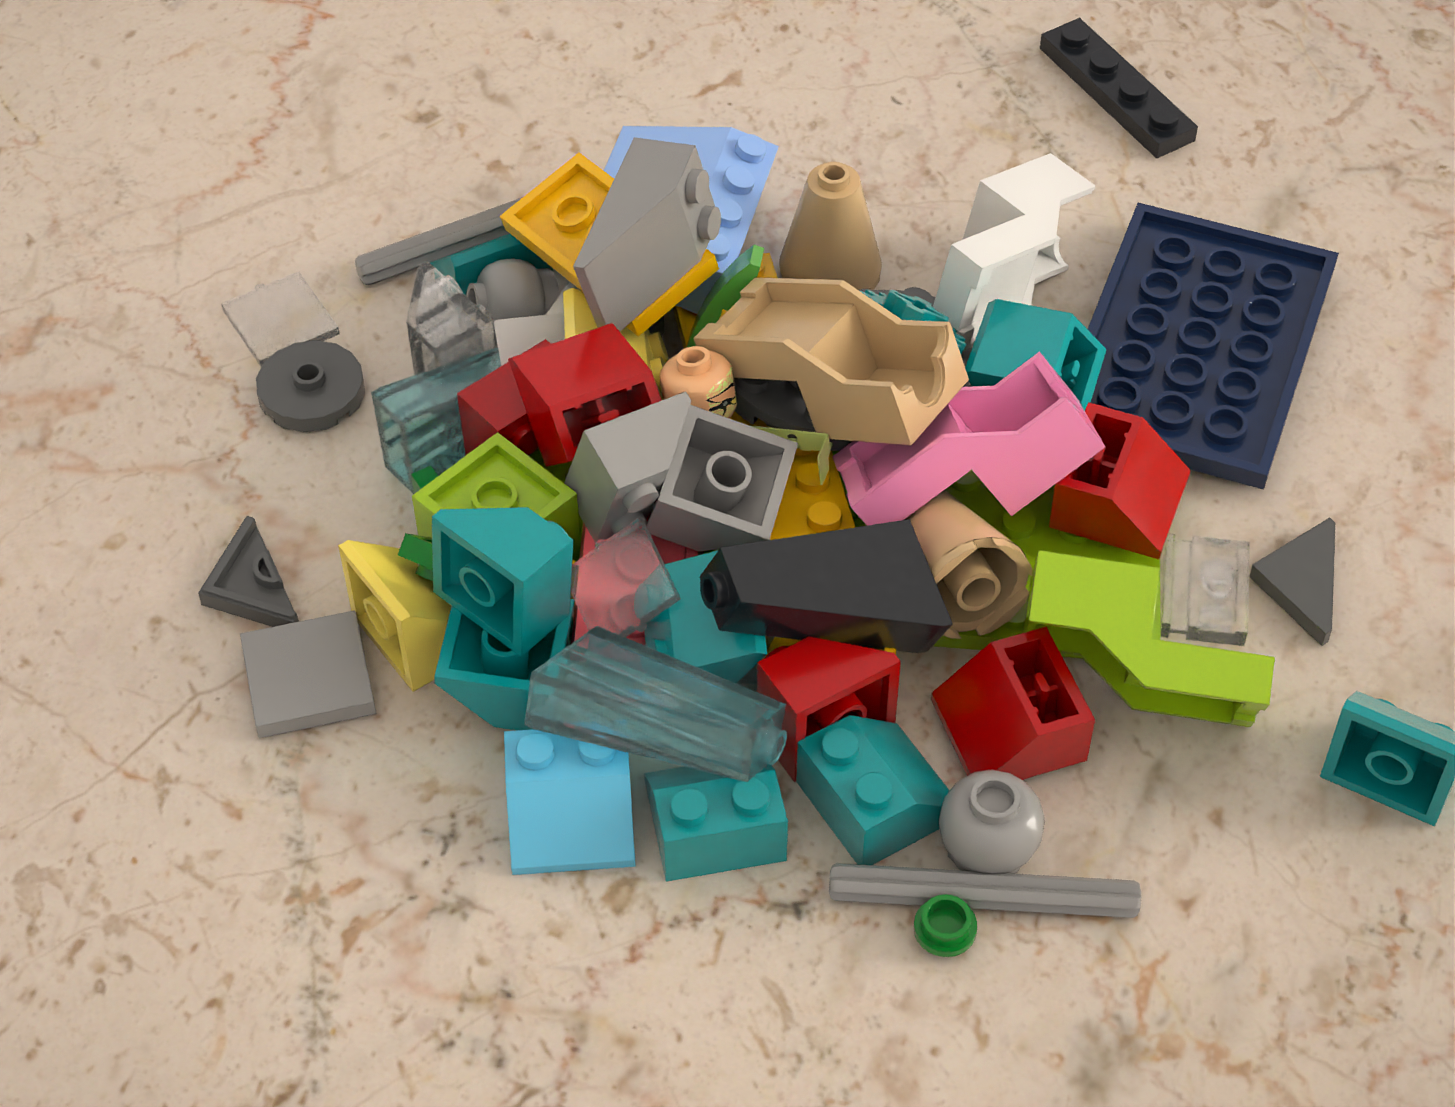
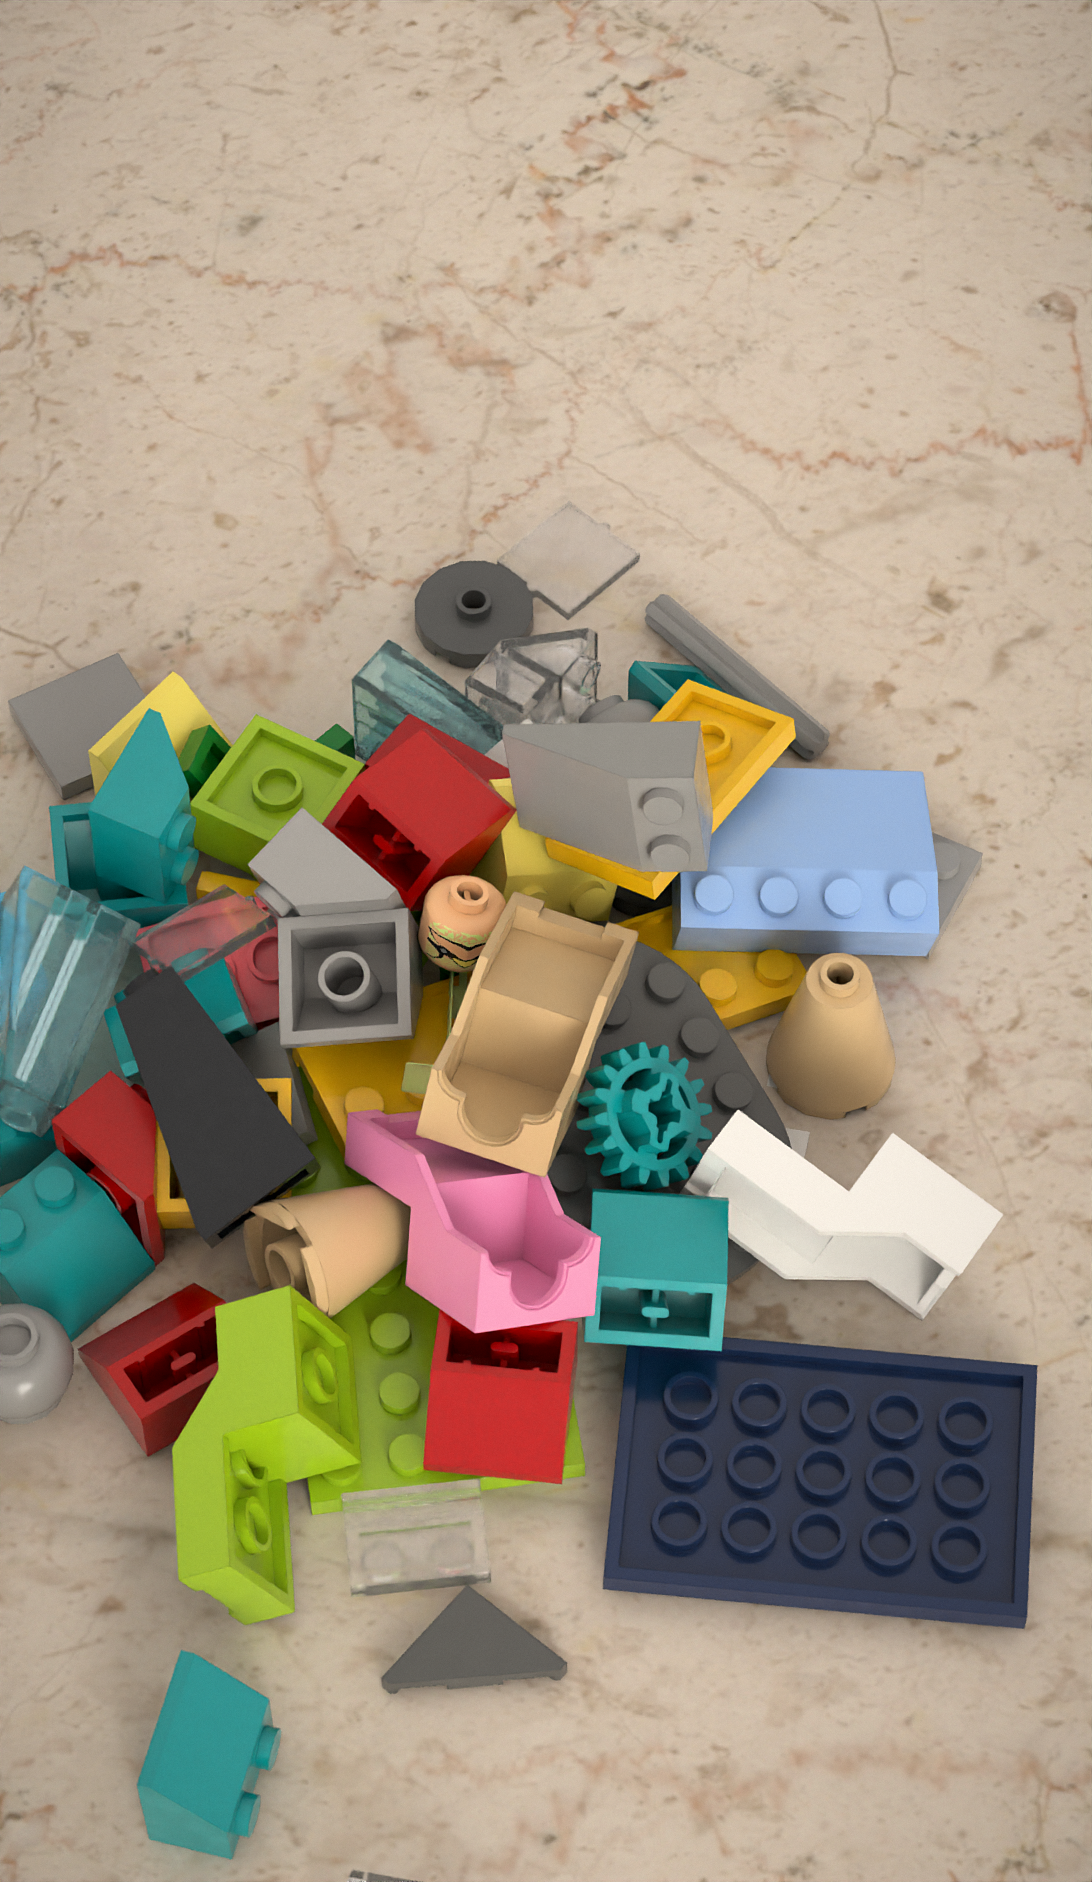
camera: 75 degrees right, 5 degrees up
(248, 581) = (202, 639): dark grey tile -> none
(727, 289) = (658, 932): bright green slope -> none

